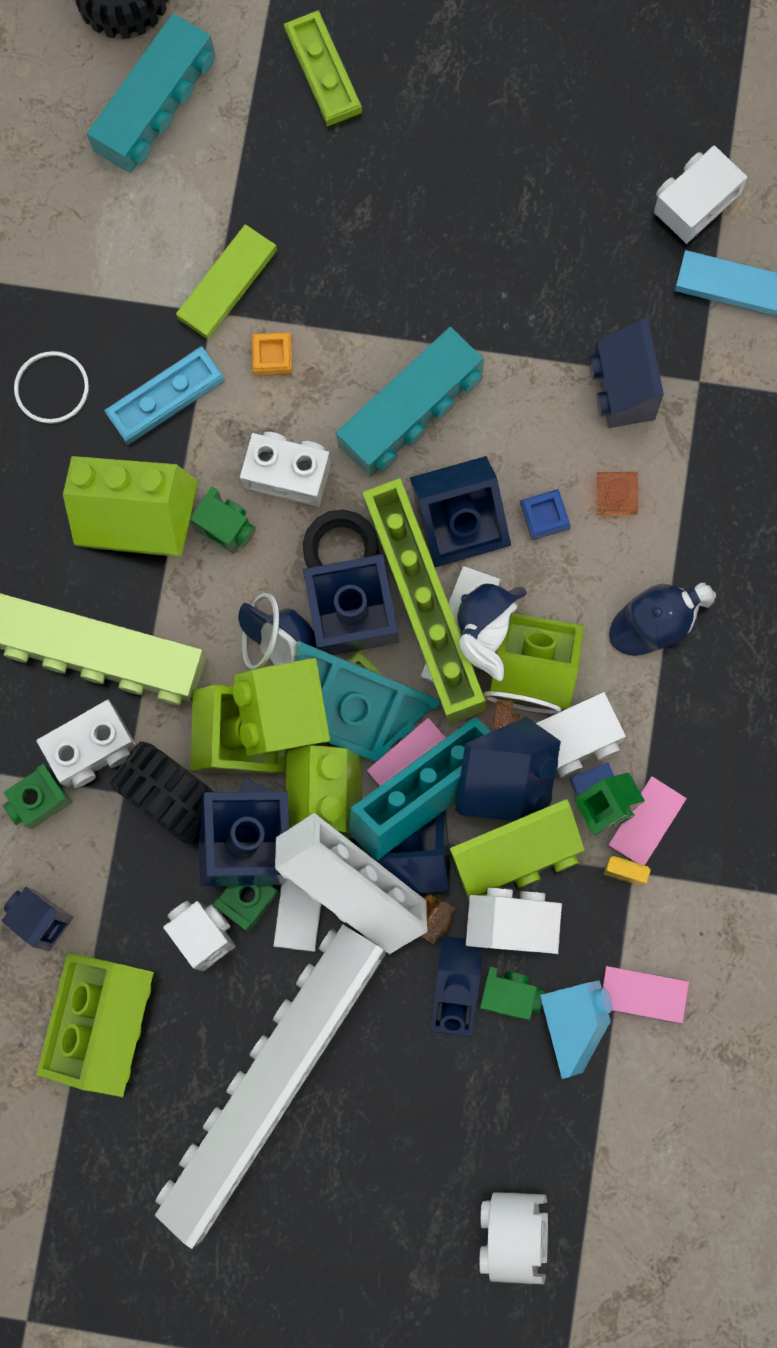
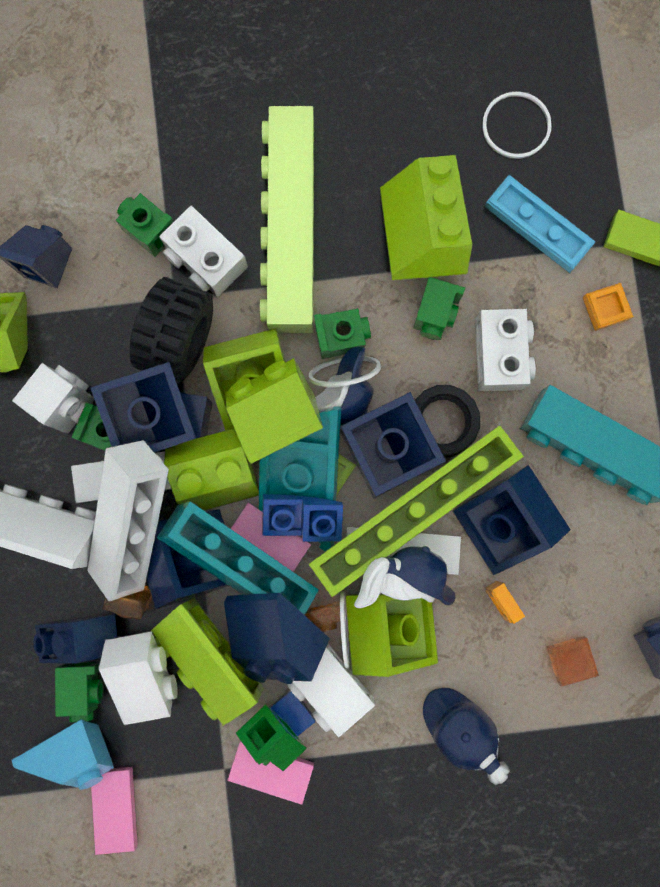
camera: 70 degrees right, 5 degrees up
(221, 639) = (334, 344): none -> green brick
(397, 714) = (302, 516): none -> blue slope
(540, 541) = (504, 602): none -> light orange tile
(545, 514) = (533, 598): blue tile -> none
(627, 871) = (218, 767): yellow tile -> none

